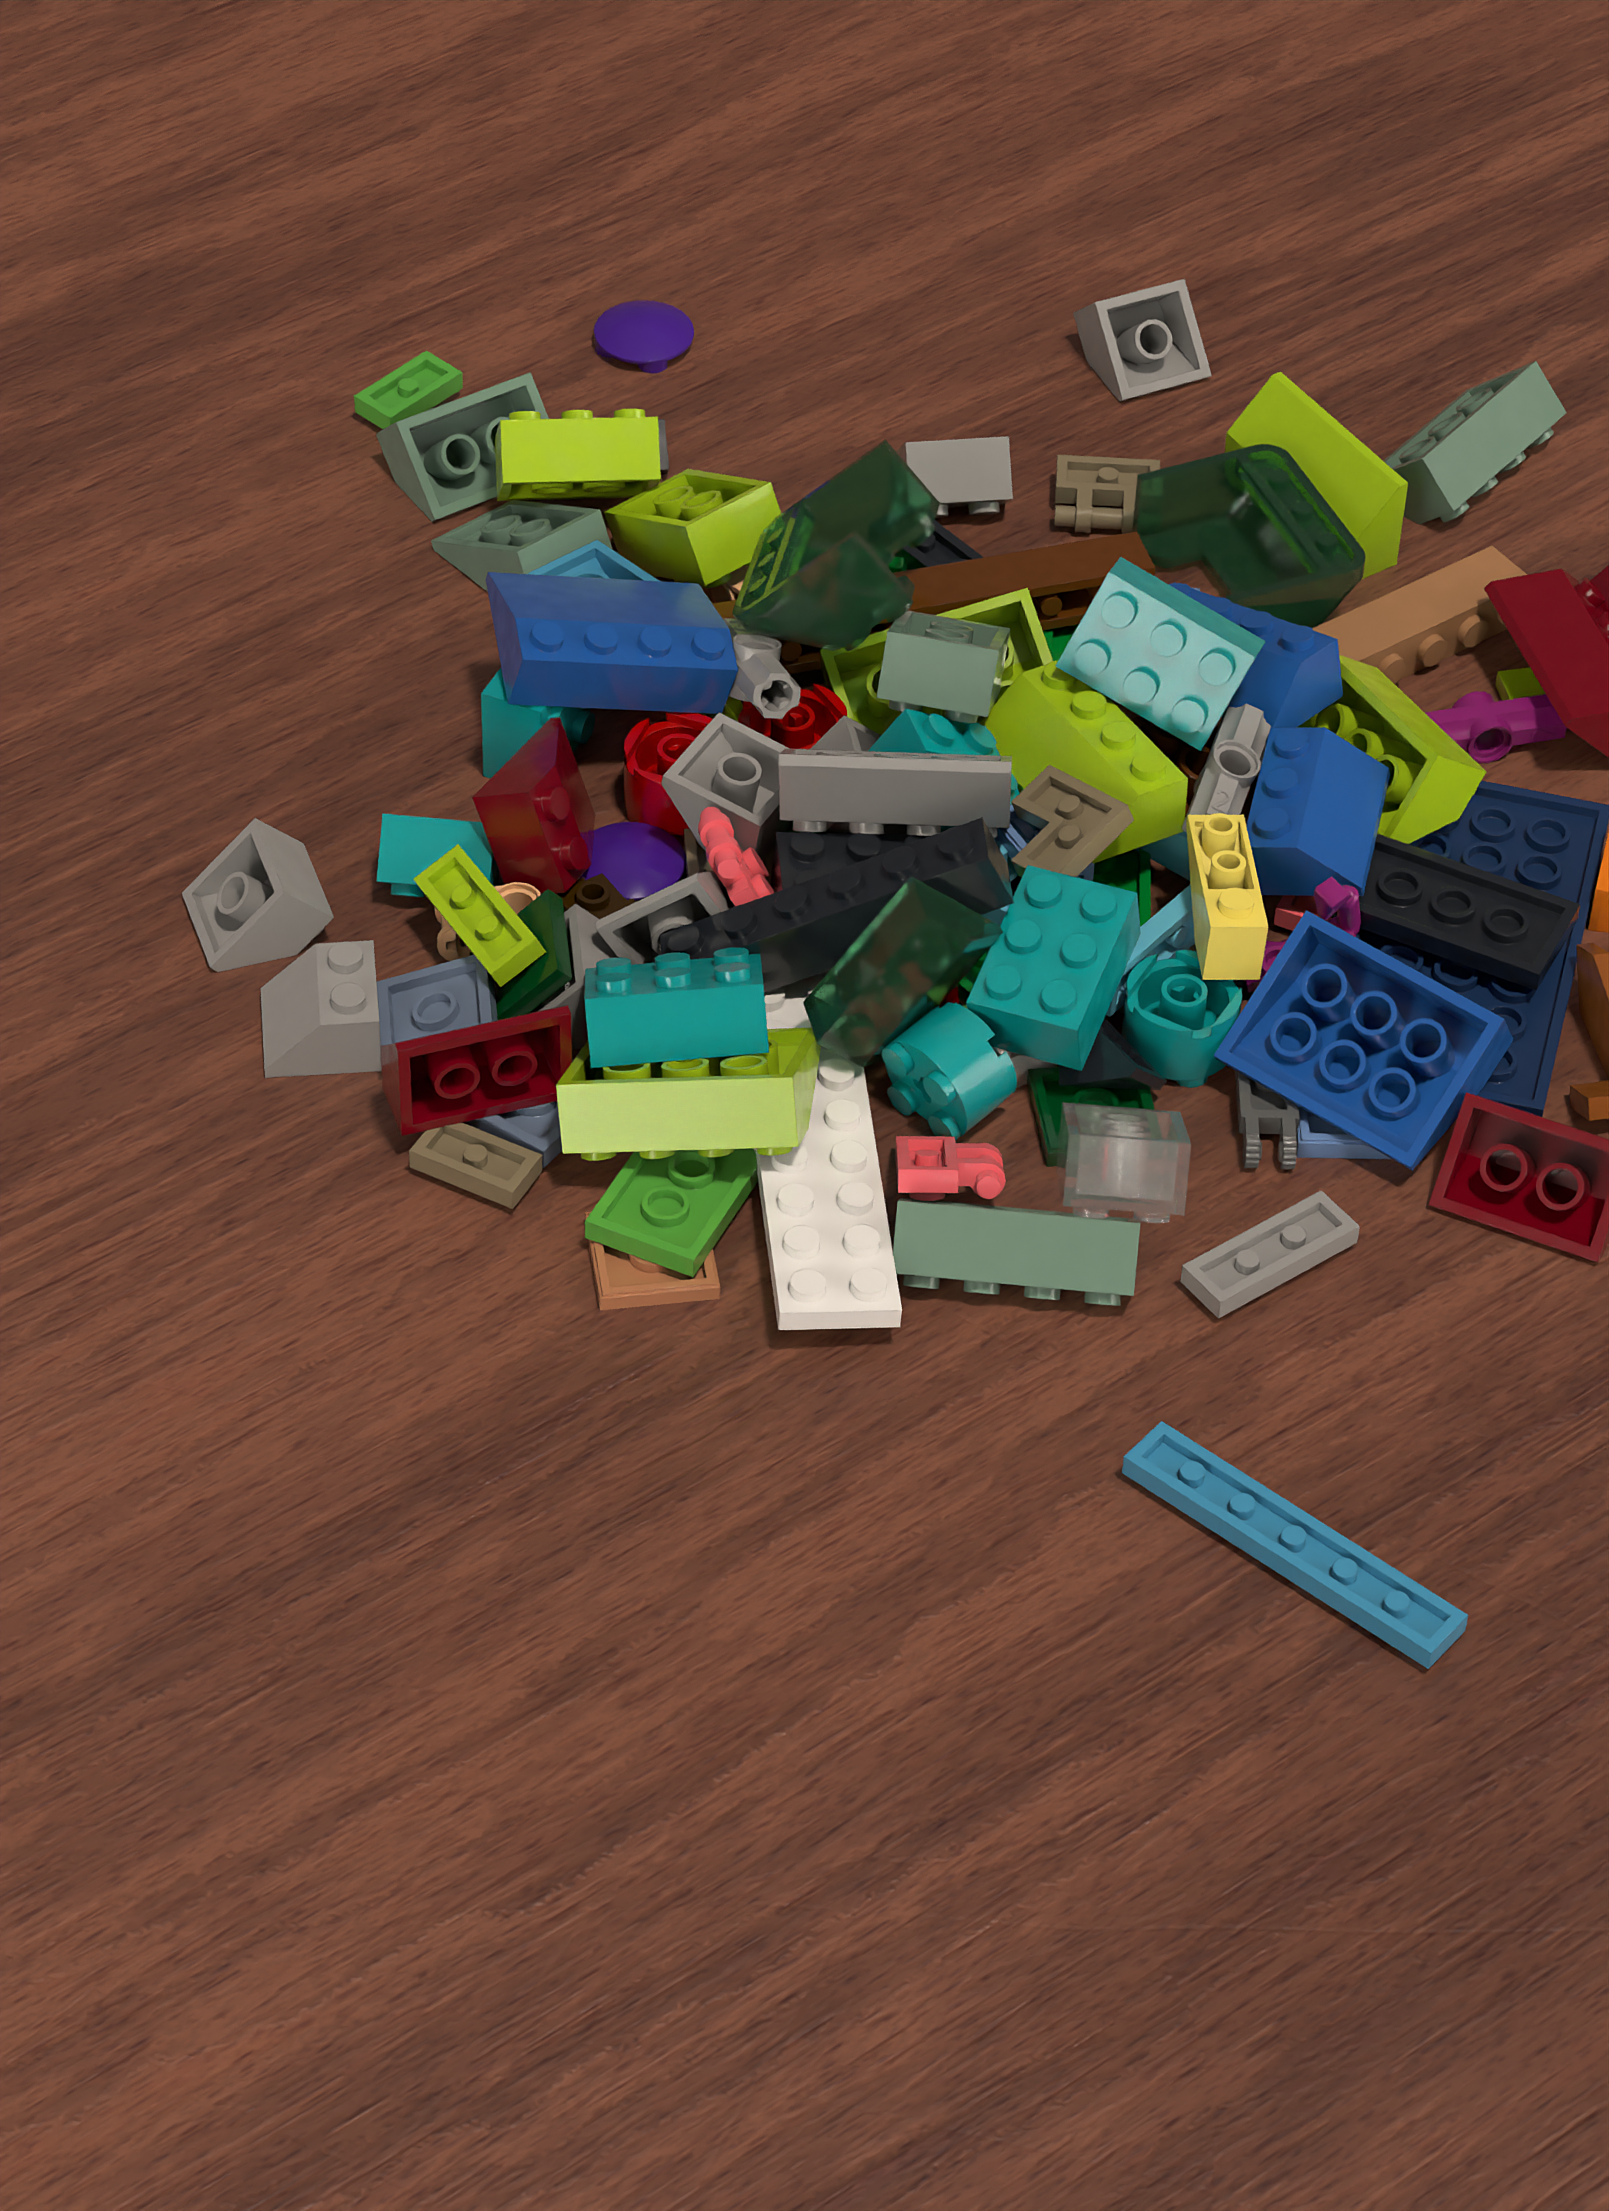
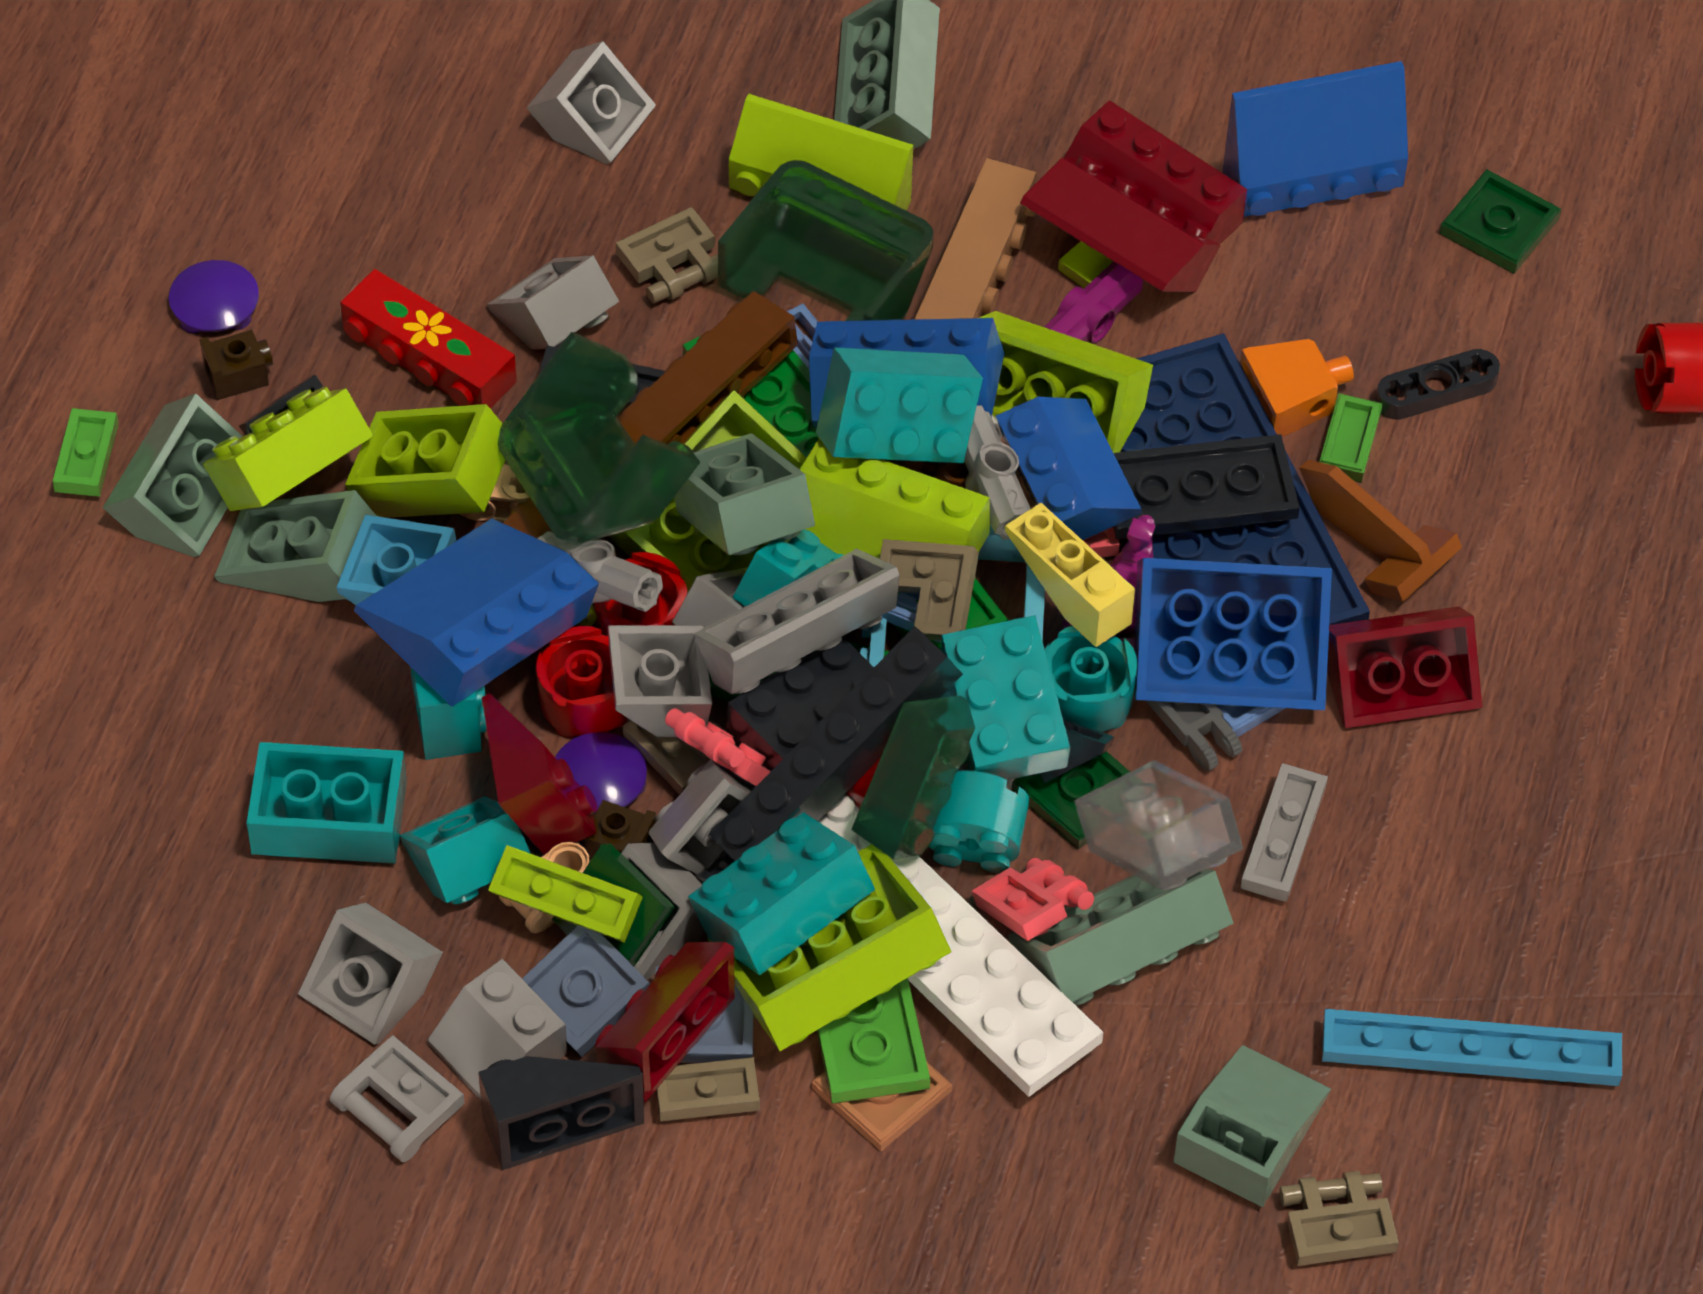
camera: 35 degrees left, 10 degrees up
(202, 1011) = (405, 1084): none -> light grey plate
(307, 1085) = (556, 1104): none -> black slope
(345, 747) = (327, 802): none -> teal brick
(608, 384) = (236, 363): none -> dark brown brick
(790, 431) = (427, 341): none -> red brick
(983, 1475) = (1249, 1124): none -> sand green slope
(999, 1626) = (1339, 1230): none -> dark tan plate

